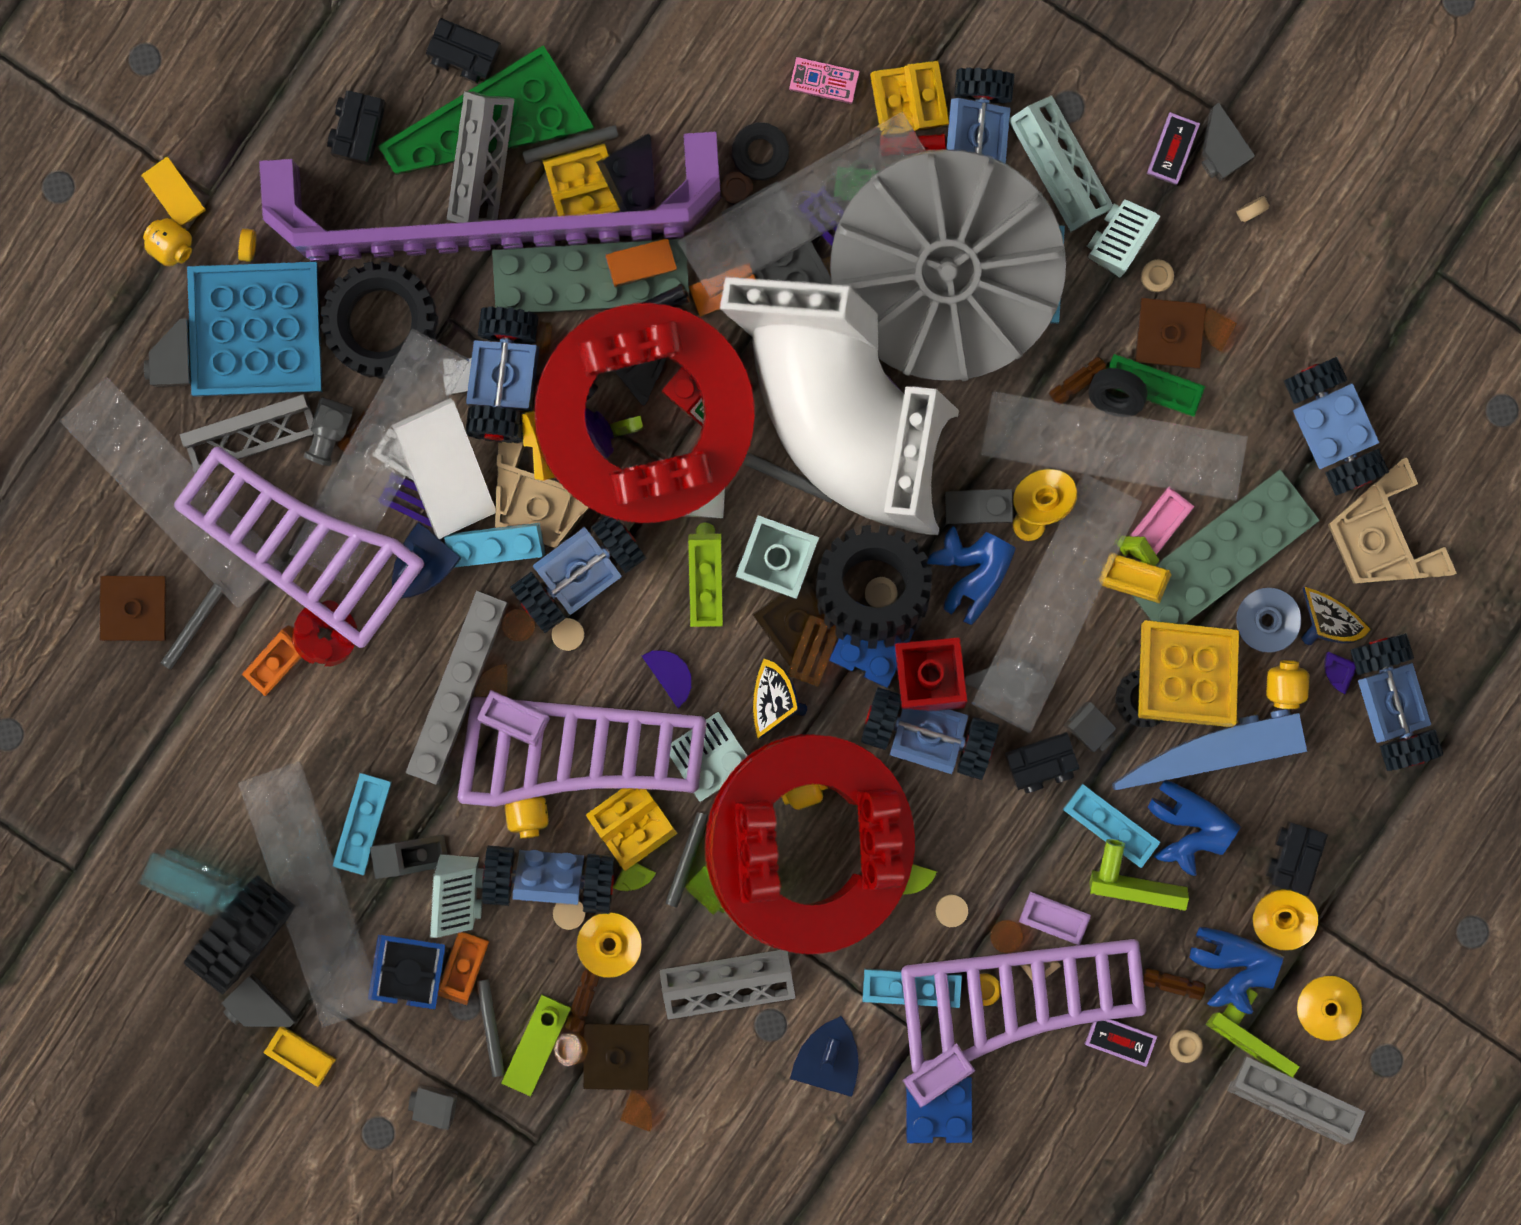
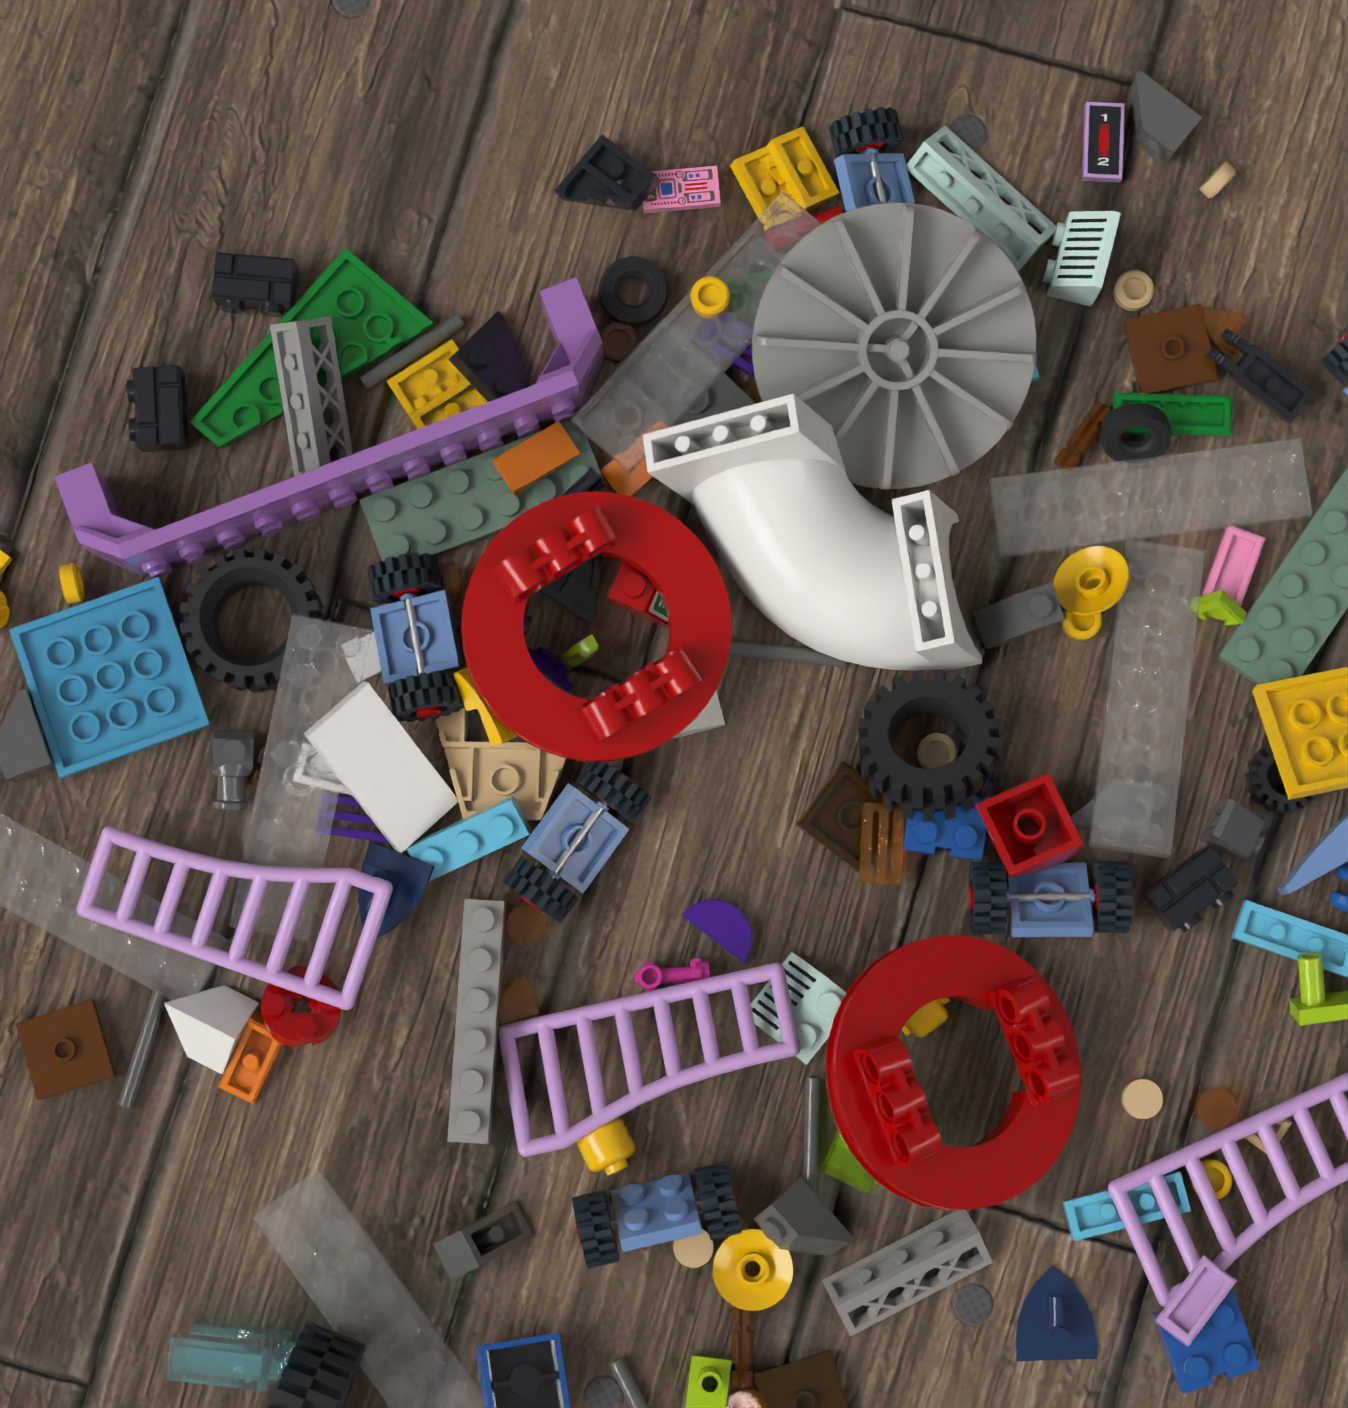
camera: 20 degrees left, 5 degrees down
(250, 420) = (136, 785): light grey fence -> none
(251, 624) = (211, 1024): none -> white slope
(362, 823) = (414, 1219): medium azure plate -> none
(455, 895) = (552, 1269): light aqua slope -> none
(462, 968) = (587, 1353): orange slope -> none
(513, 718) = (554, 1036): lavender tile -> none
(568, 634) = (587, 917): tan tile -> none
(602, 696) = (651, 976): none -> dark pink bar
(631, 825) = (733, 1118): yellow slope -> none
(634, 878) = (755, 1179): lime tile -> none
(658, 921) = (802, 1222): none -> dark grey slope
(705, 577) = (728, 798): lime piece -> none
(769, 55) = (608, 178): none -> black wing
(774, 698) = (853, 914): shield -> none
(777, 557) = (804, 748): light aqua slope -> none
(817, 179) = (710, 297): none -> yellow tile
(919, 879) = (1092, 1073): lime tile -> none
(983, 582) = (1051, 705): blue piece -> none
(1054, 918) = (1265, 1069): lavender tile -> none
(1137, 578) = (1230, 640): yellow tile -> none
(1235, 380) = (1263, 377): none -> black hinge

